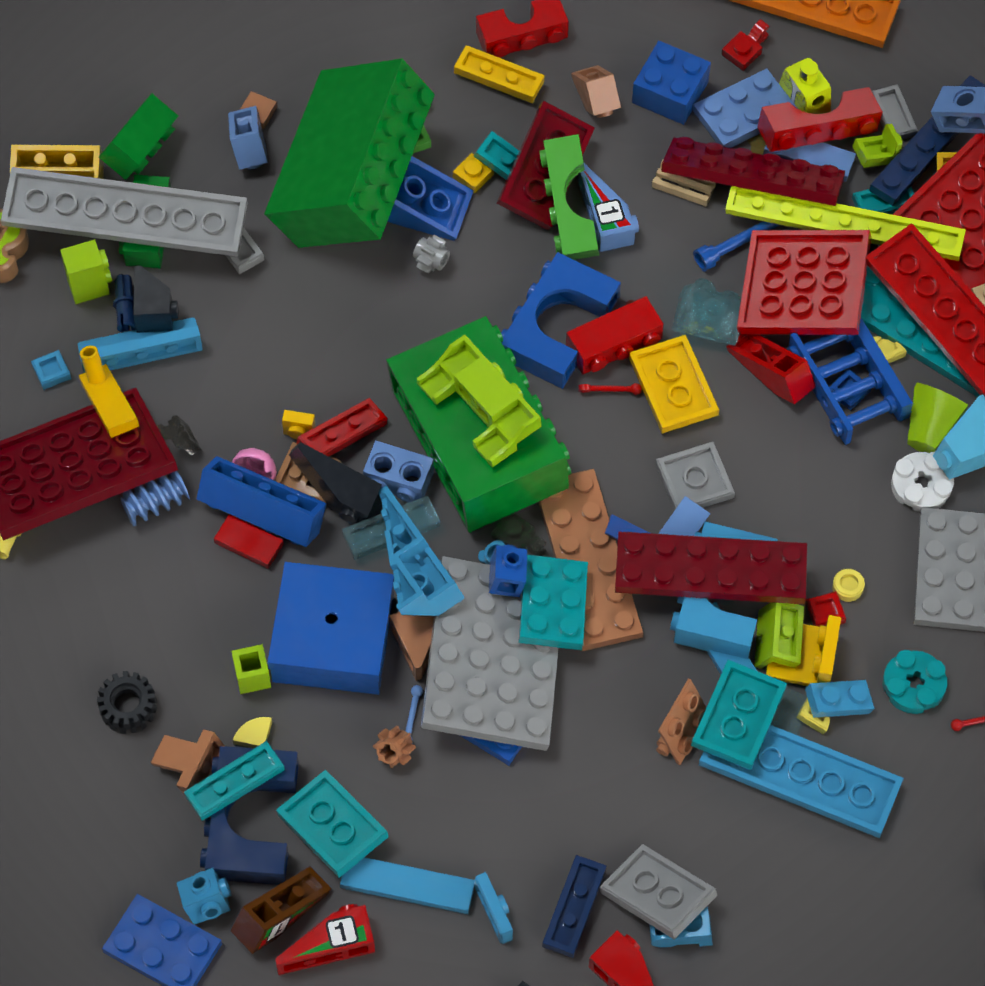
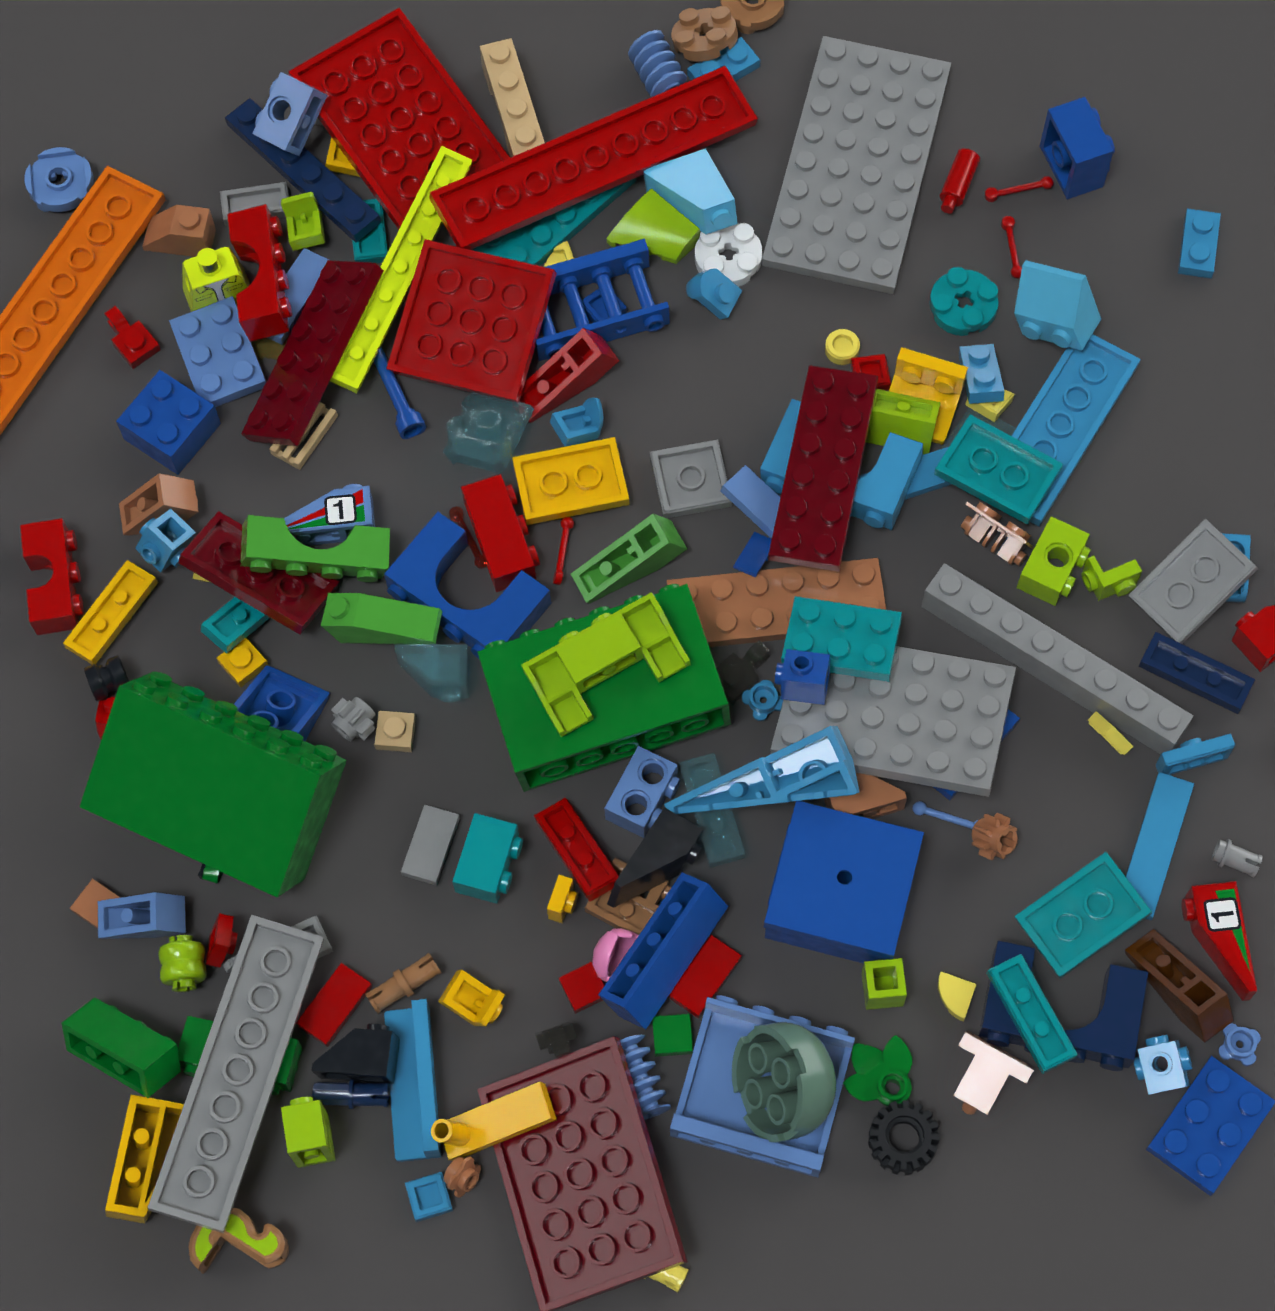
camera: 80 degrees left, 5 degrees up
(67, 386) = (462, 1175): none -> nougat plate
(158, 594) = (714, 1114): none -> medium blue panel
(158, 600) = (799, 1086): none -> sand green cylinder
(183, 679) = (879, 1068): none -> green plate
(196, 281) = (334, 1004): none -> red tile
(196, 523) = (672, 1035): none -> green tile
(208, 372) = (472, 999): none -> yellow bracket
(214, 170) = (182, 963): none -> lime piece
(217, 324) = (403, 983): none -> medium nougat pin
(226, 448) = (582, 987): none -> red tile
(228, 957) = (1249, 1039): none -> medium blue plate
(235, 189) = (221, 940): none -> red plate
(324, 364) = (486, 858): none -> teal brick
(335, 328) = (430, 845): none -> light grey tile
(403, 950) = (1236, 857): none -> light grey pin
(429, 289) = (395, 731): none -> tan plate
(439, 77) = (106, 679): none -> black wheel
(484, 301) = (437, 669): none -> clear light blue slope
(505, 837) = (1110, 733): none -> light yellow tile
(516, 255) = (379, 620): none -> bright green slope
(564, 784) = (1055, 660): none -> light grey brick
(568, 88) = (164, 540): none -> dark azure brick
(609, 438) = (629, 558): none -> bright green slope
(651, 830) = (1116, 581): none -> lime bracket
(652, 761) = (1056, 542): none -> lime brick
(727, 382) = (579, 423): none -> dark azure plate
(850, 64) = (180, 231): none -> nougat slope
(877, 472) = (714, 292): none -> dark azure plate
(909, 748) = (1055, 306): none -> medium azure slope

